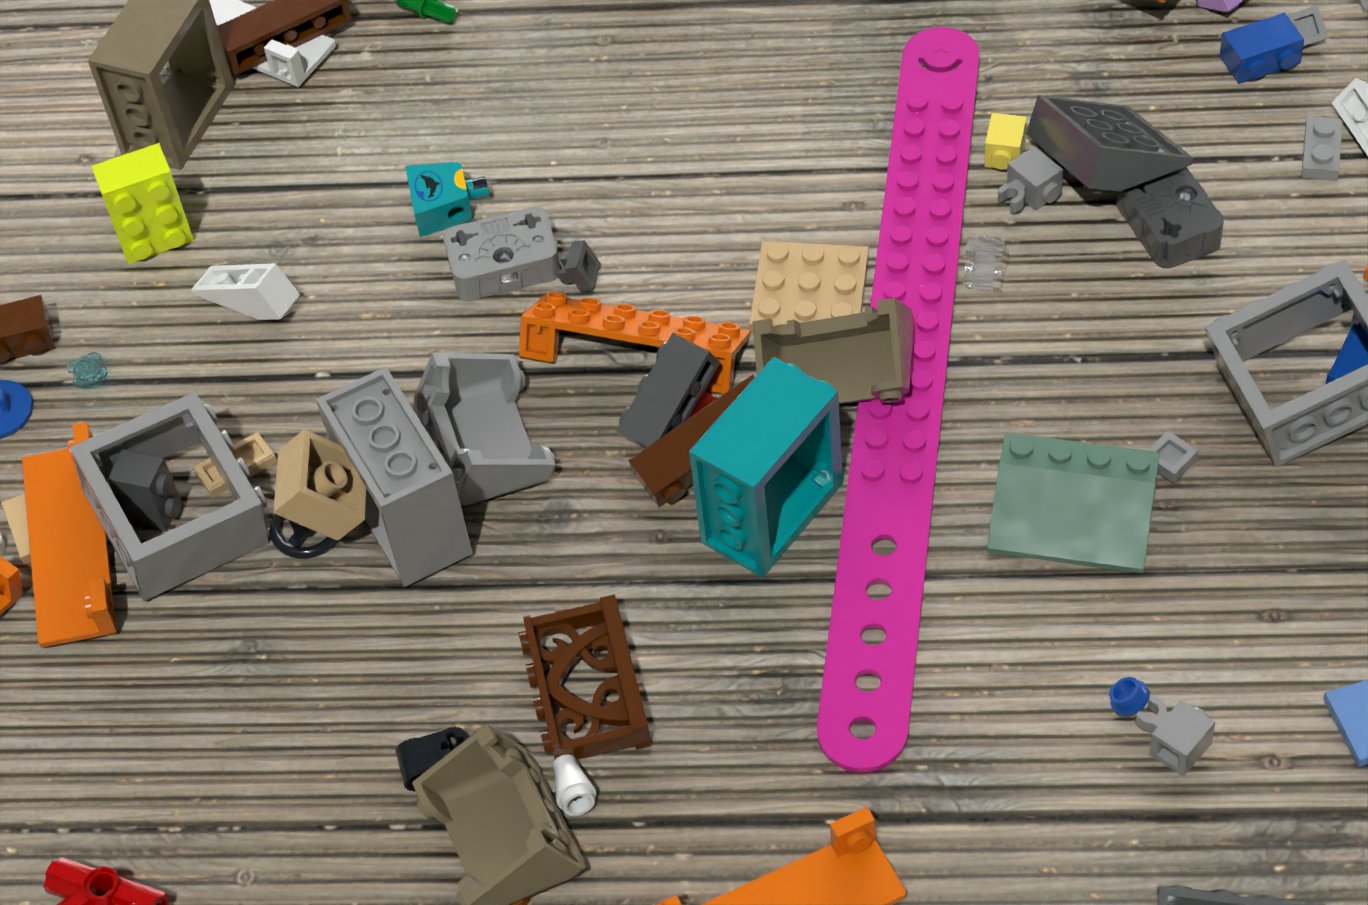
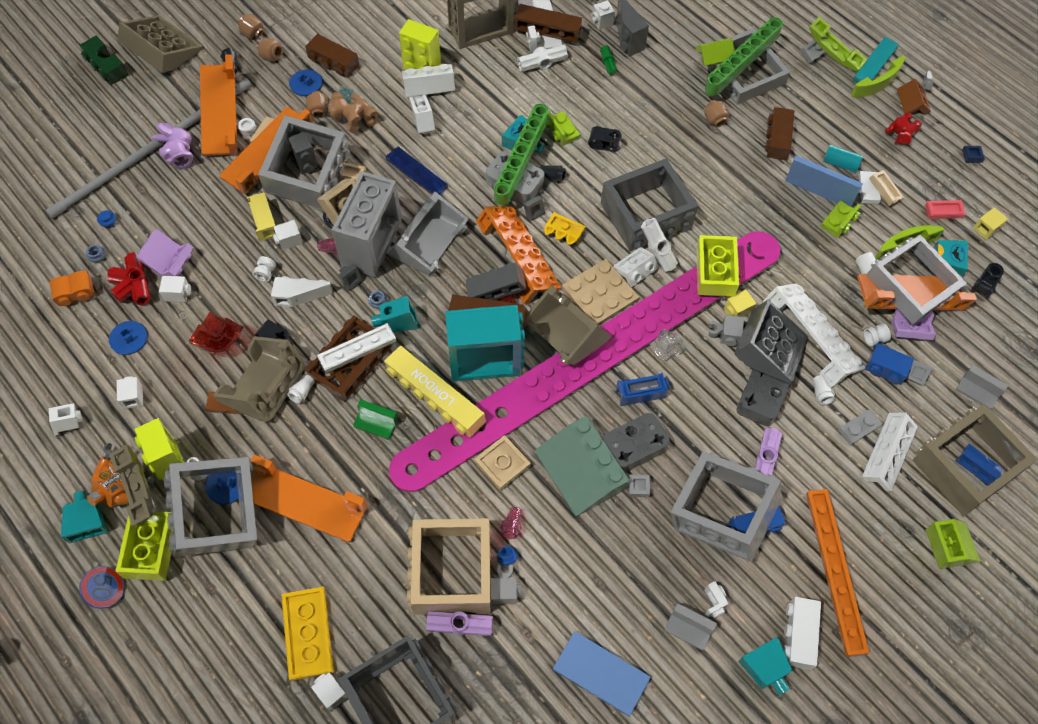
camera: 40 degrees right, 10 degrees up
(62, 410) = (317, 104): none -> medium nougat head
(115, 820) = (164, 254): none -> lavender bracket
(146, 372) = (339, 108): none -> medium nougat animal
(189, 848) = (174, 289): none -> white brick
(191, 629) = (262, 216): none -> light yellow window
(201, 240) = (428, 80): none -> white brick
(267, 618) = (287, 235): none -> white brick
(294, 693) = (264, 268): none -> white wheel
(328, 78) = (542, 58): none -> white piece
(335, 371) = (416, 171): none -> clear blue tile
(352, 836) = (216, 334): none -> clear red brick
(353, 571) = (327, 245): none -> clear pink cone
(384, 676) = (293, 292): none -> white slope
(439, 583) = (350, 276): none -> dark grey tile
(478, 140) = (562, 128): none -> lime bracket
(484, 209) = (520, 154): none -> bright green beam
(519, 567) = (377, 295): none -> sand blue plate
(550, 198) = (554, 172): none -> black cone
(558, 104) = (602, 139): none -> black piece
(583, 562) = (398, 314): none -> teal torso
(588, 649) = (356, 348): none -> white tile
(656, 254) = (564, 228): none -> yellow plate
(729, 717) = (375, 419): none -> green panel
(730, 169) = (642, 181): none -> dark grey window
(765, 601) = (435, 392): none -> light yellow brick
(813, 212) = (637, 266): none -> white bracket
(820, 153) = (655, 237): none -> white piece
(928, 111) = (717, 265): none -> neon yellow brick
(969, 599) = (502, 462): none -> tan plate
(1023, 344) = (642, 389): none -> blue window
(1083, 655) = (512, 524): none -> clear pink cone
(1101, 401) = (641, 446): none -> dark grey axle
(1119, 722) = (469, 604): none -> tan window
(1169, 847) = (445, 622): none -> lavender piece
(1205, 29) = (875, 335): none -> white wheel
(1216, 93) = (842, 358): none -> white bracket
(1231, 147) = (823, 391): none -> white cone
(1265, 271) = (769, 448): none -> lavender piece

